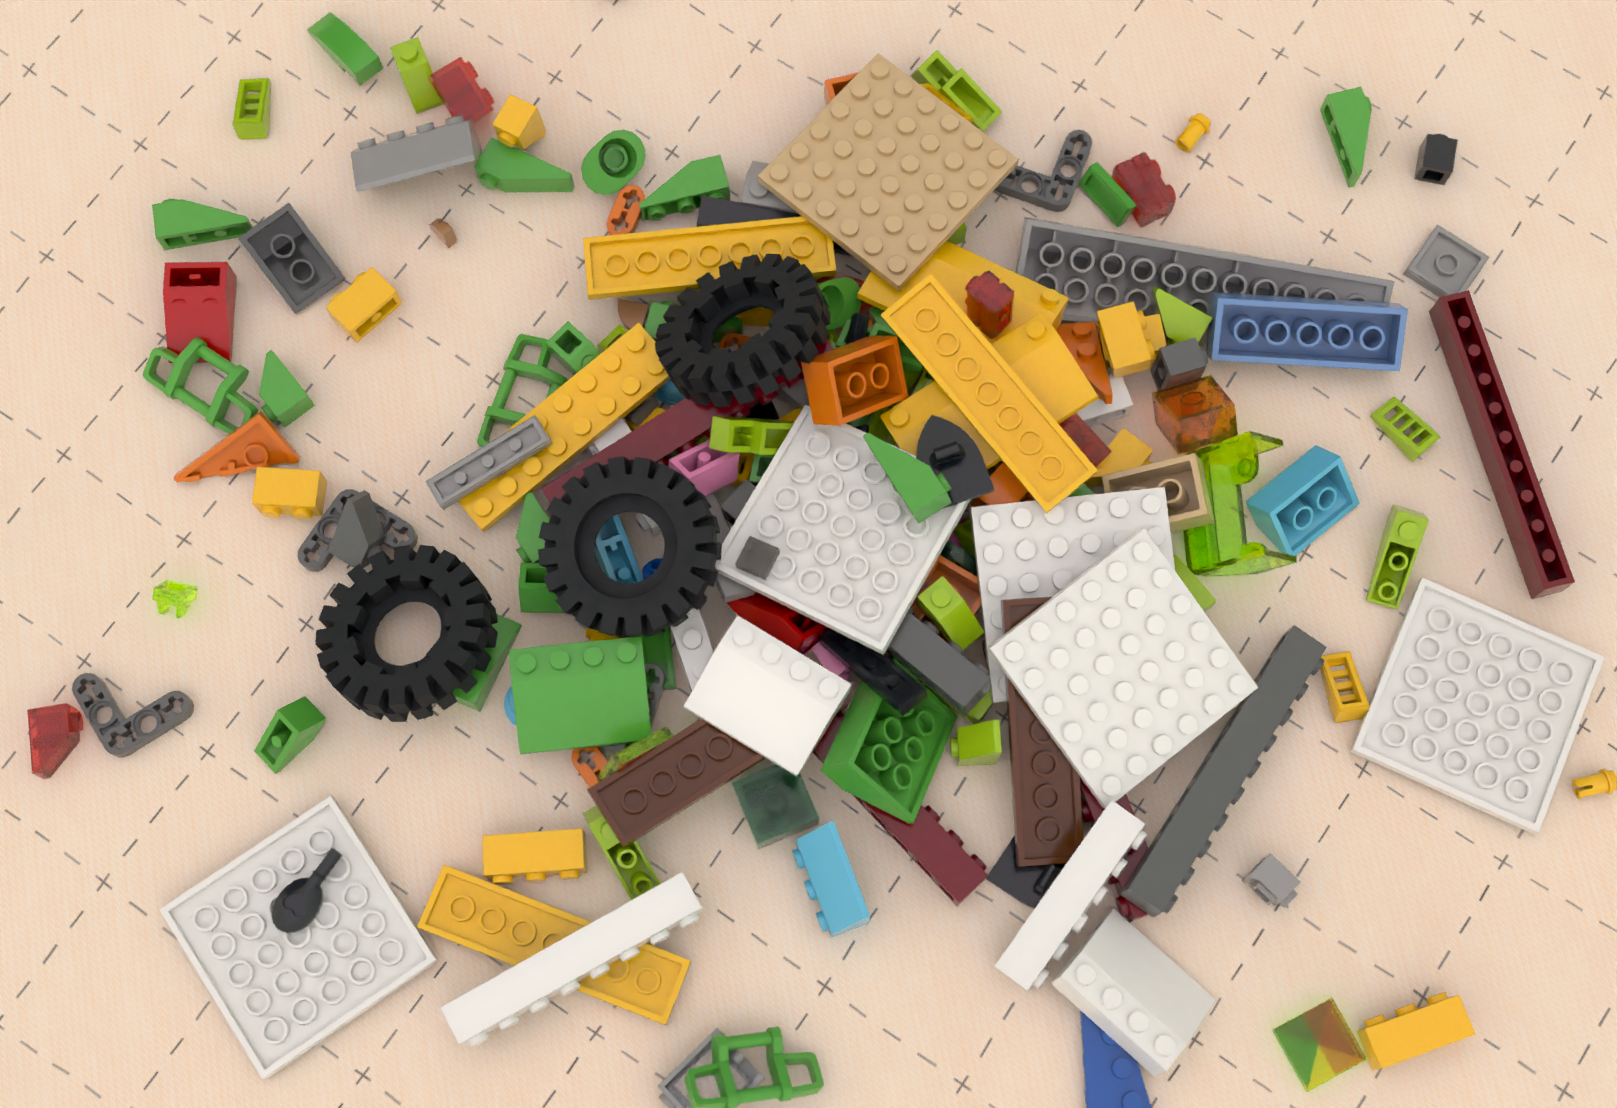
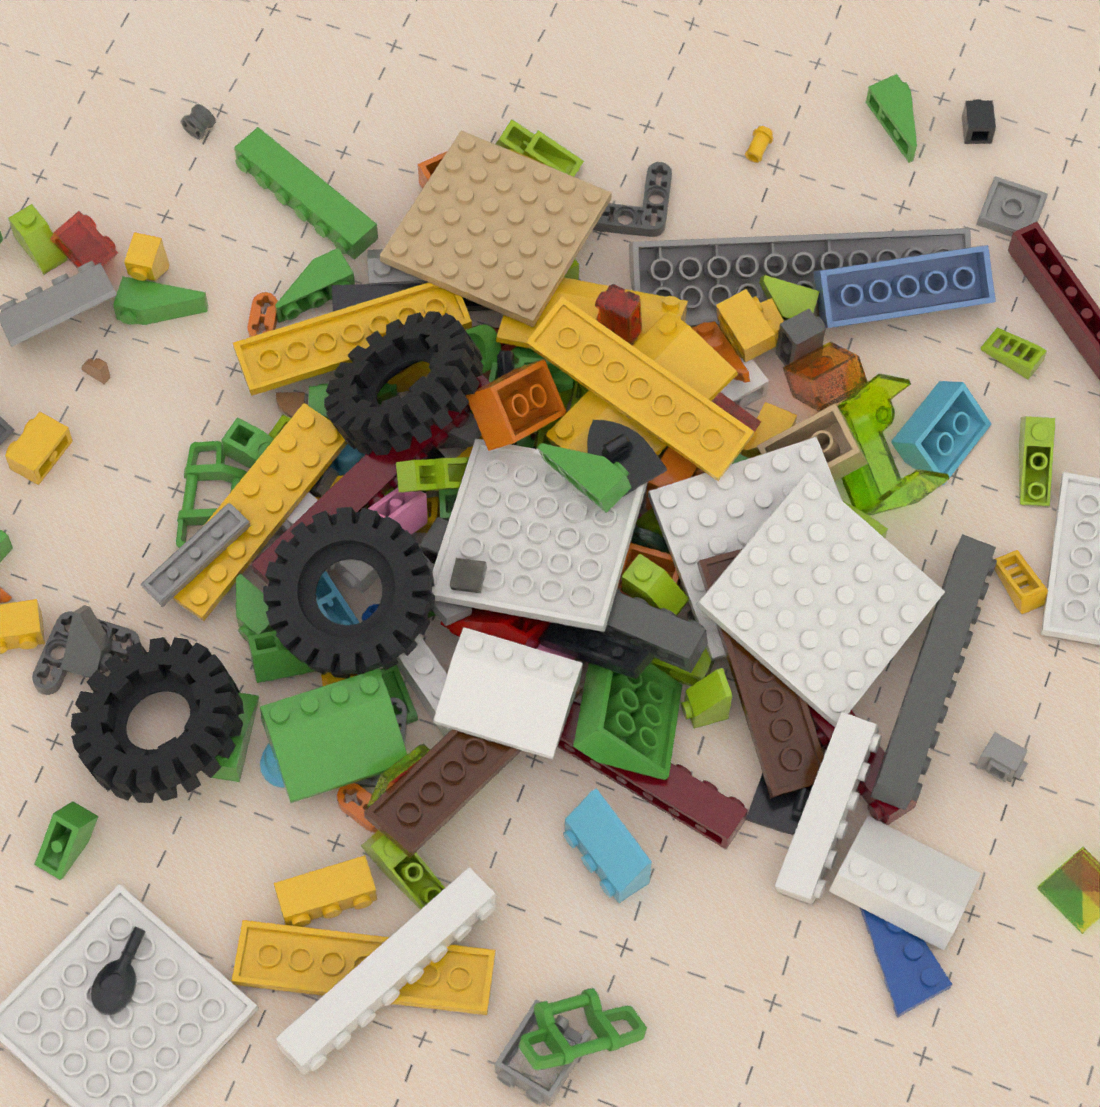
camera: 15 degrees left, 10 degrees down
(613, 162) = (241, 274): bright green piece -> none
(703, 85) = (305, 193): none -> bright green brick
(775, 805) = (537, 794): clear green brick -> none
(1107, 194) = (697, 211): bright green tile -> none
(1143, 184) = (728, 200): clear red brick -> none

